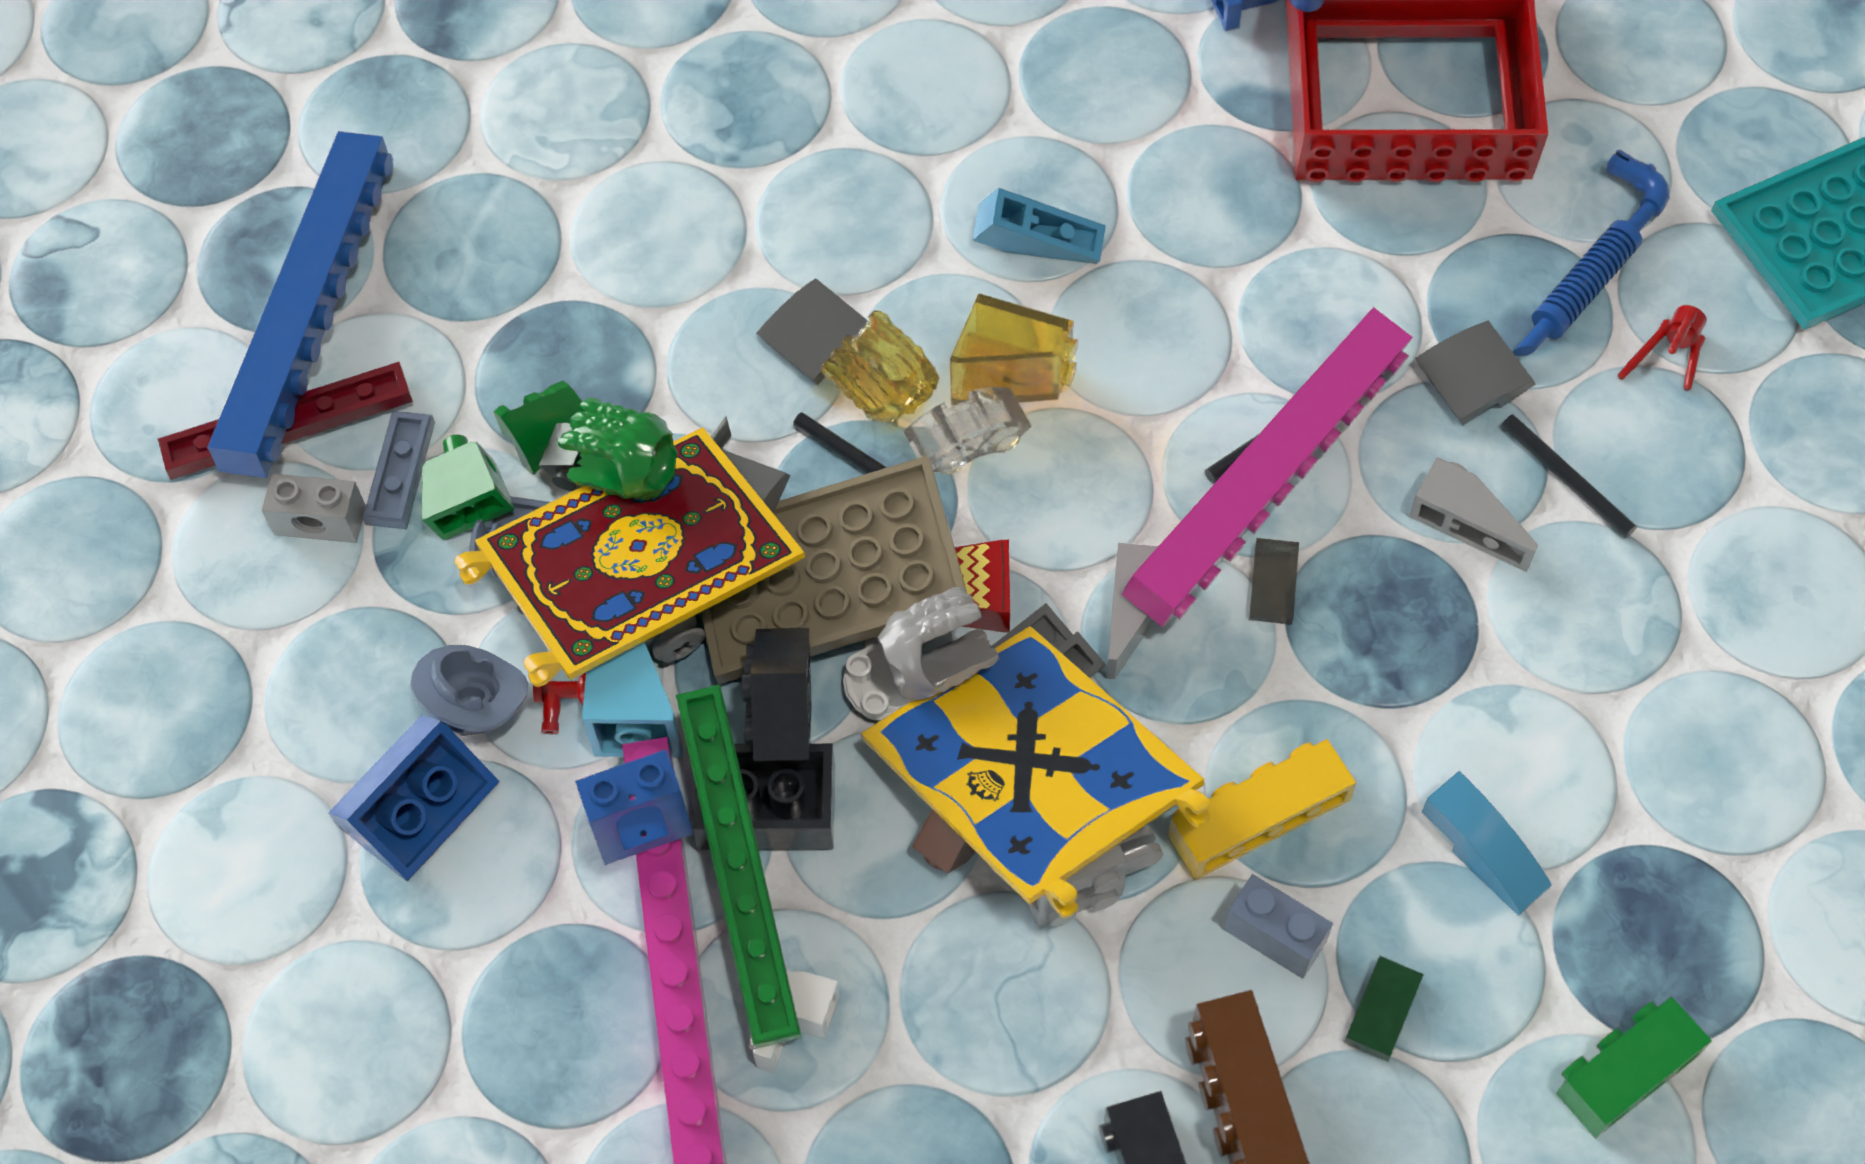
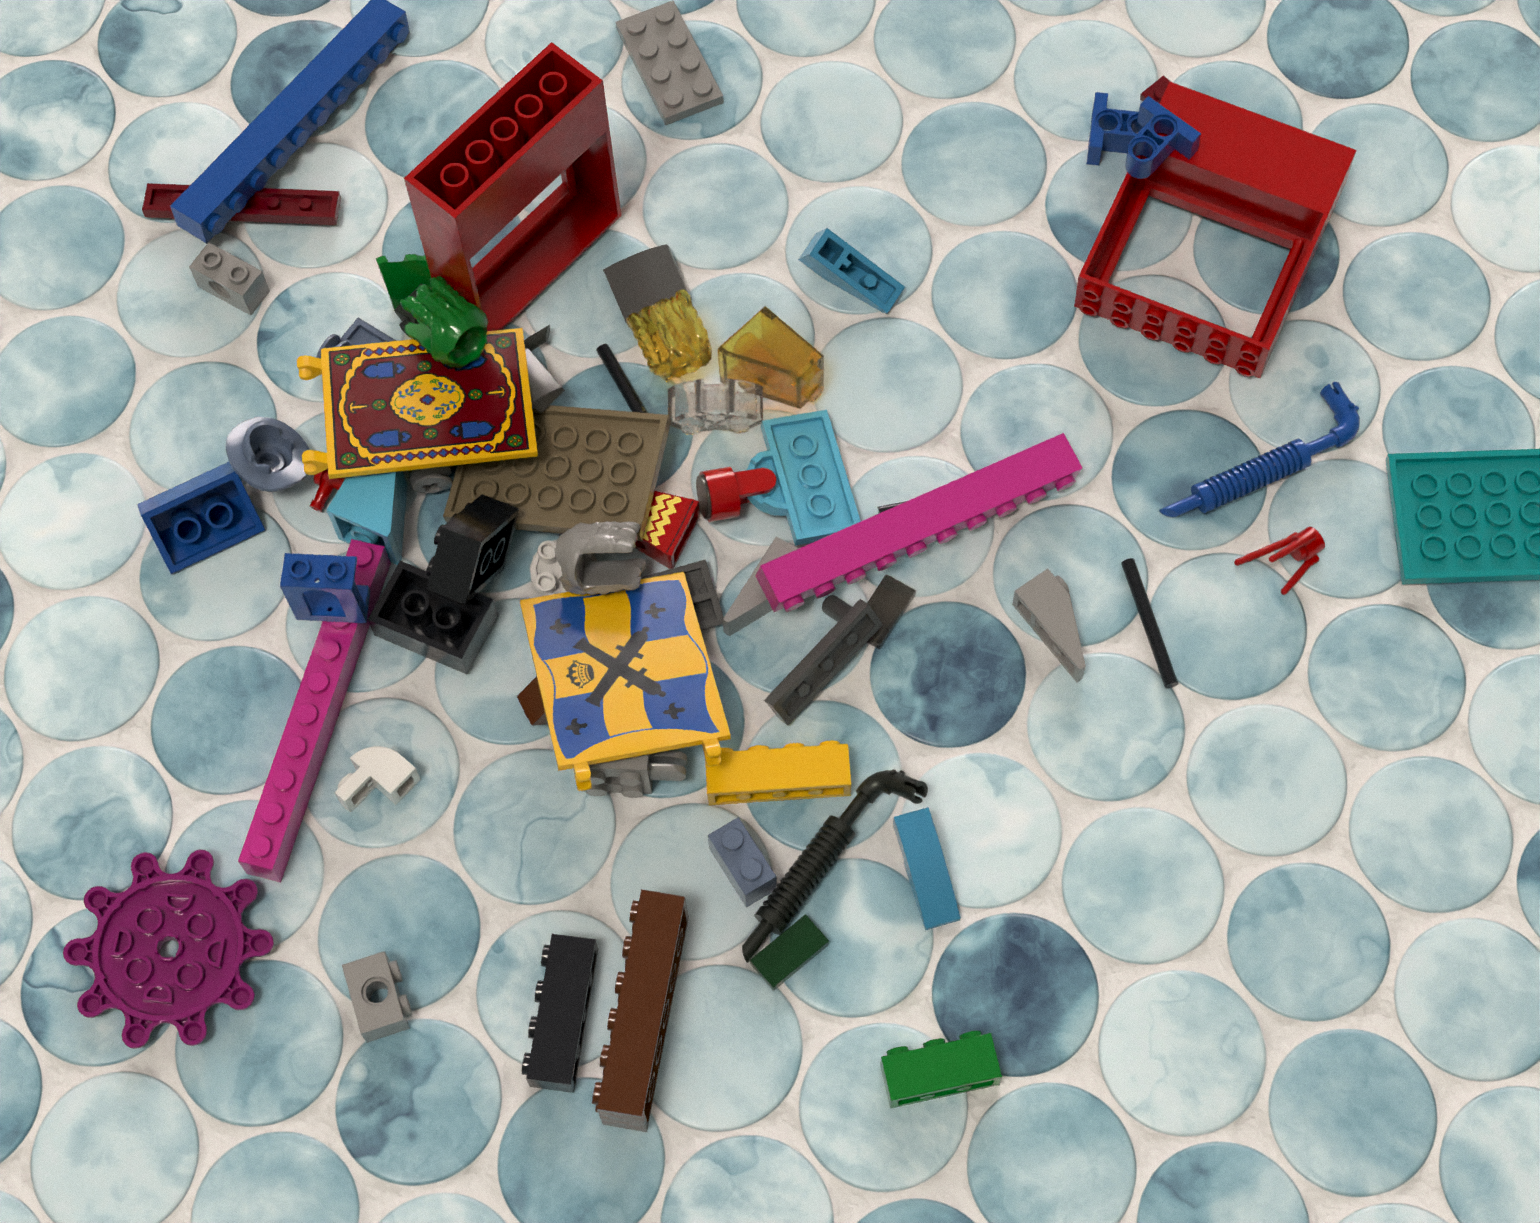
camera: 25 degrees right, 5 degrees up
(399, 470) = (303, 272): sand blue tile -> none
(462, 488) = (336, 305): torso -> none
(646, 249) = (496, 164): none -> red panel
(712, 89) = (669, 62): none -> light grey plate
(738, 868) = (384, 658): green tile -> none
(1094, 474) = (794, 478): none -> medium azure plate
(1242, 672) = (826, 659): none -> dark grey piece
(1360, 877) = (822, 853): none -> pearl dark grey piece
(1474, 371) = (1122, 513): dark grey slope -> none

